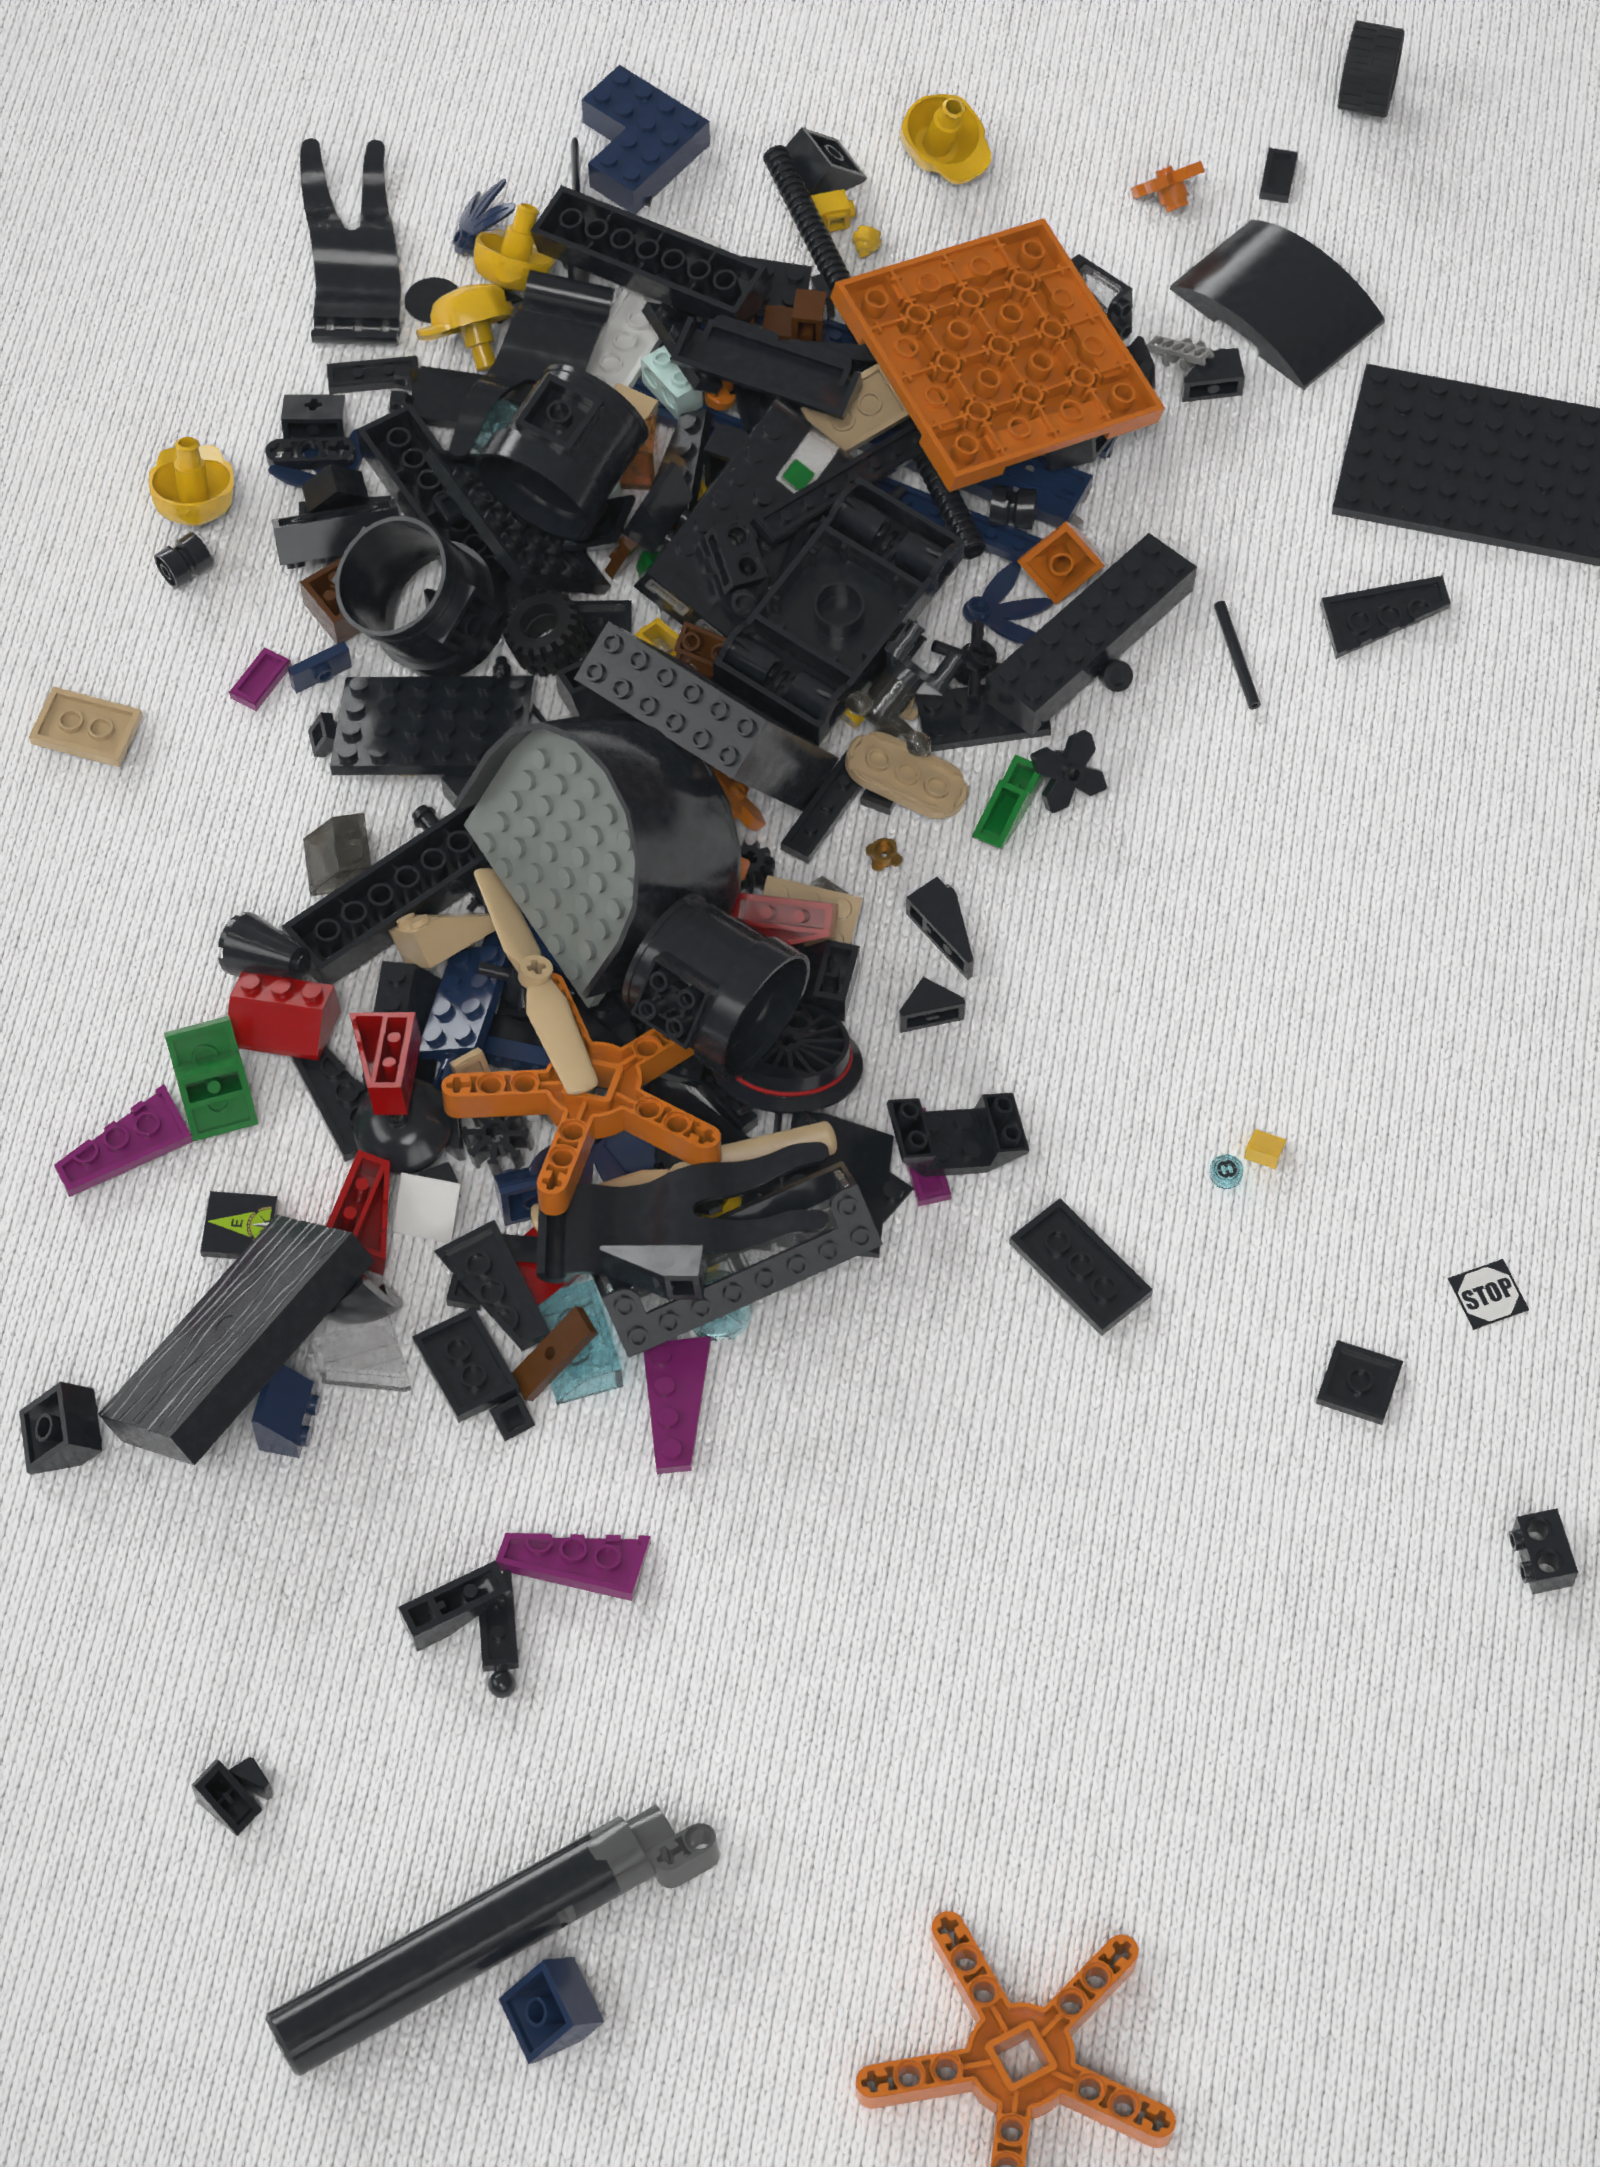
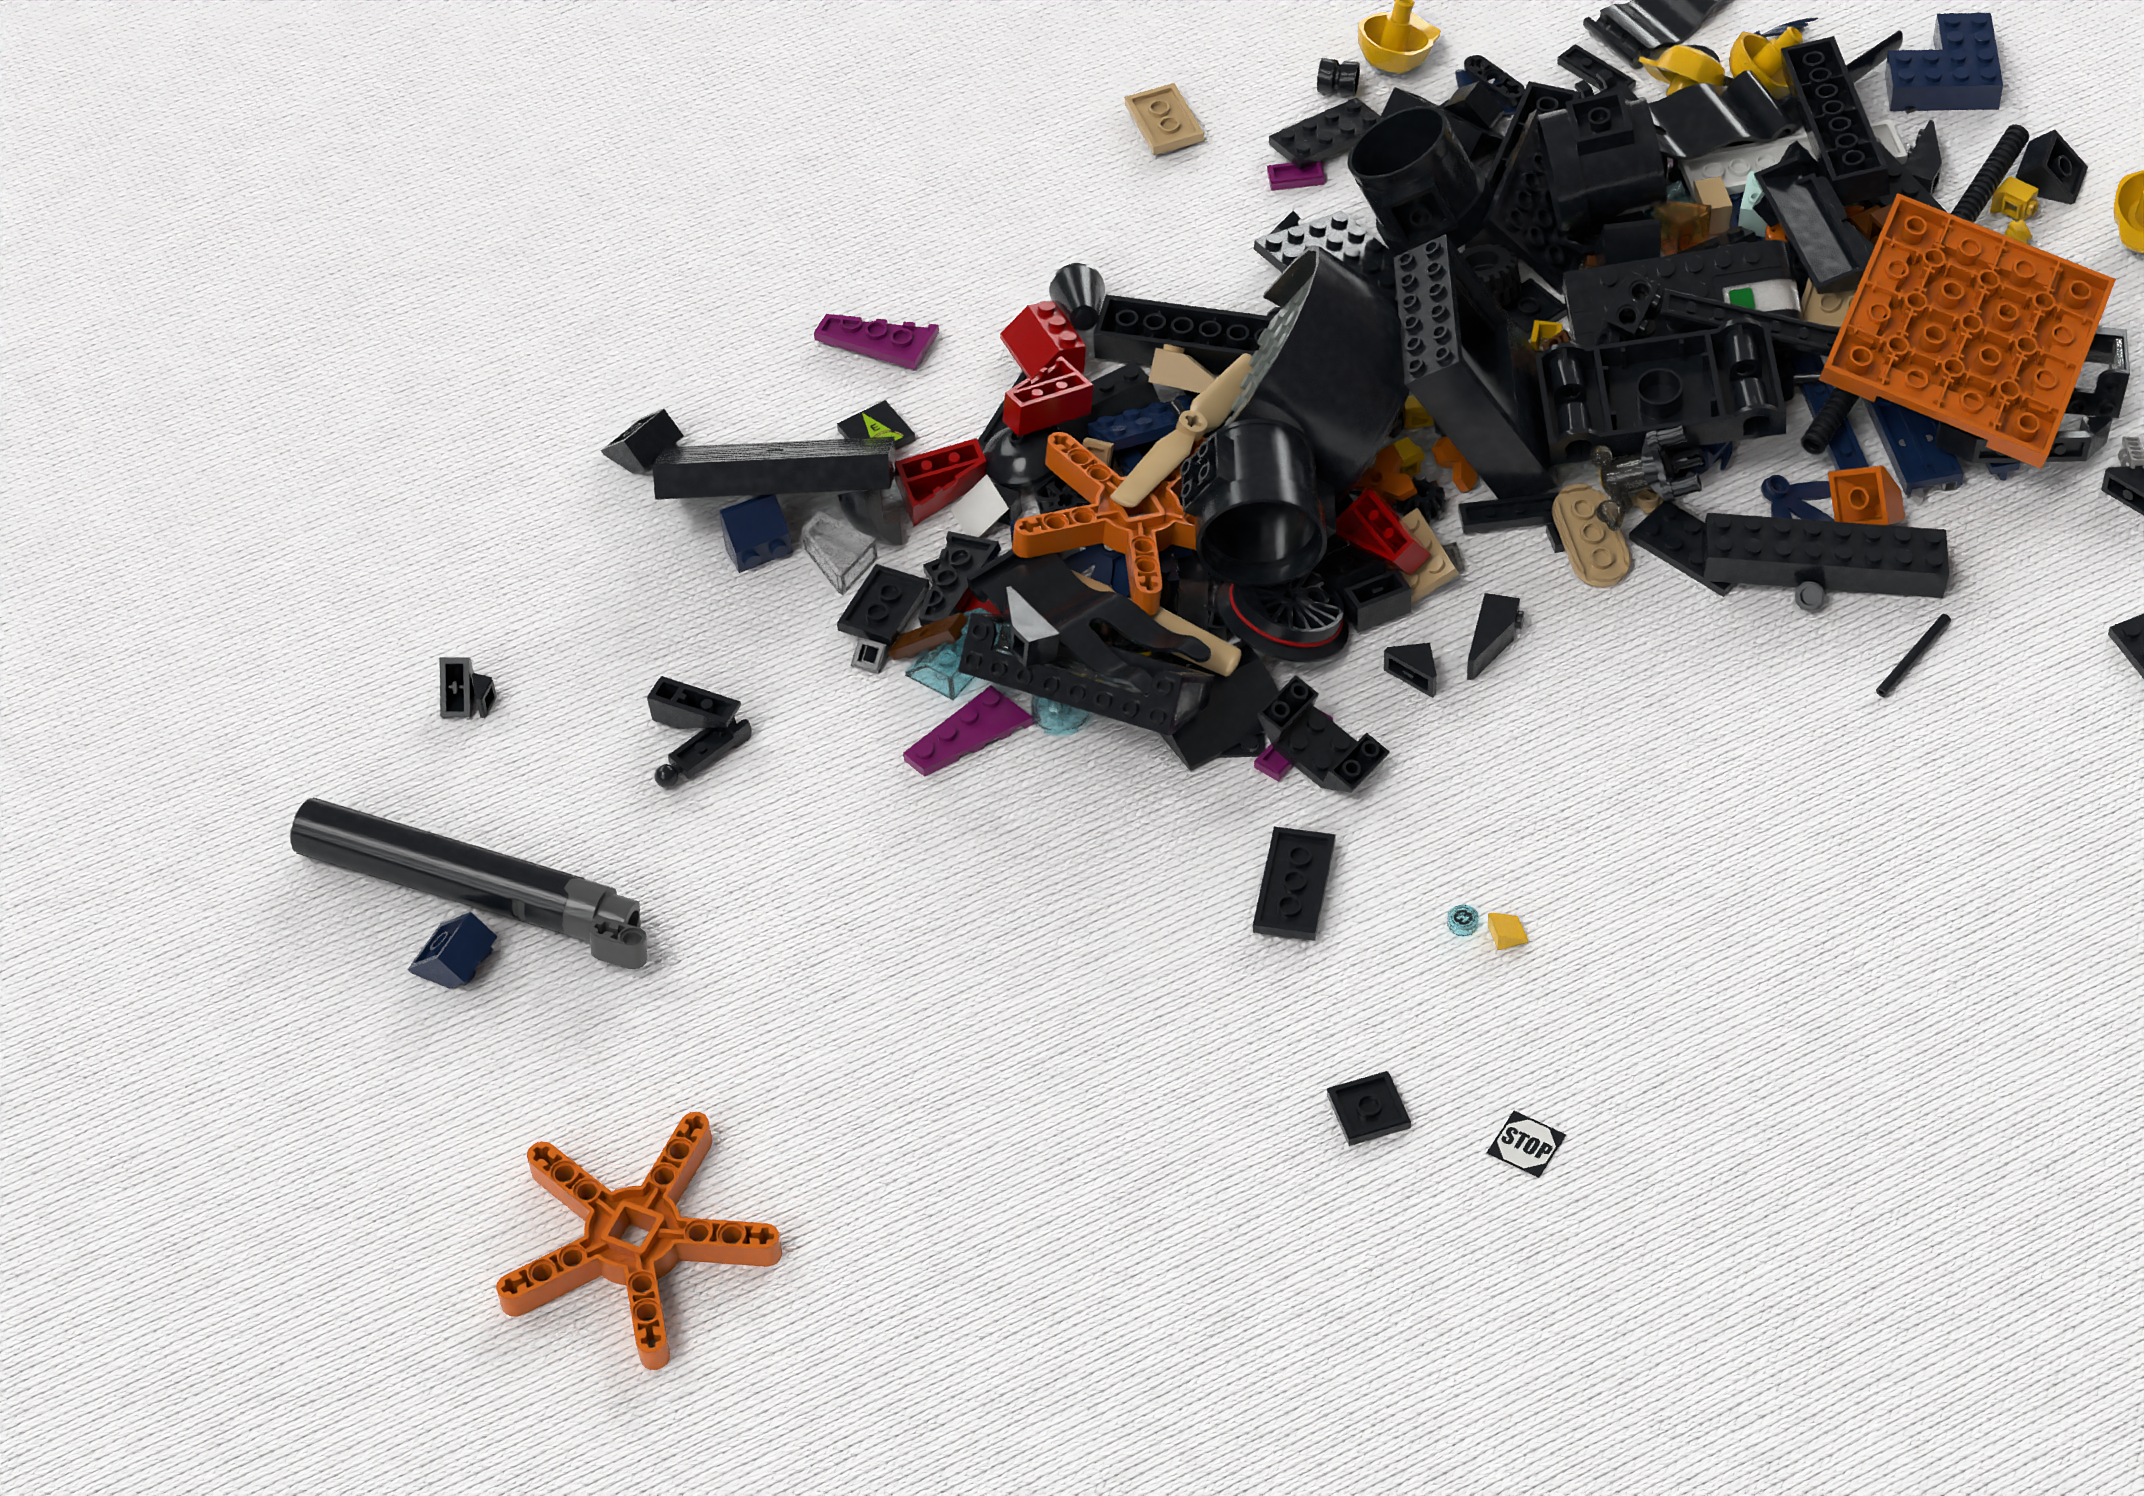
camera: 55 degrees right, 10 degrees down
(211, 1078) = (962, 341): green bracket -> none
(240, 618) = (1324, 133): none -> black plate
(314, 416) = (1523, 61): black brick -> none
(319, 667) = (1333, 193): dark blue plate -> none
(336, 853) = (1208, 289): clear smoke slope -> none
(589, 1564) = (794, 758): magenta wing -> none
(725, 229) = (1925, 159): none -> black slope
(883, 846) = (1515, 566): pearl gold plate -> none
(978, 656) = (1729, 500): black bar -> none
(1008, 803) = (1634, 605): green slope -> none
(1013, 507) = (1873, 440): black wheel -> none
(1068, 771) = (1683, 602): black plant -> none
(1374, 613) = (2048, 711): black wing -> none
(1551, 1550) = (1339, 1308): black brick -> none

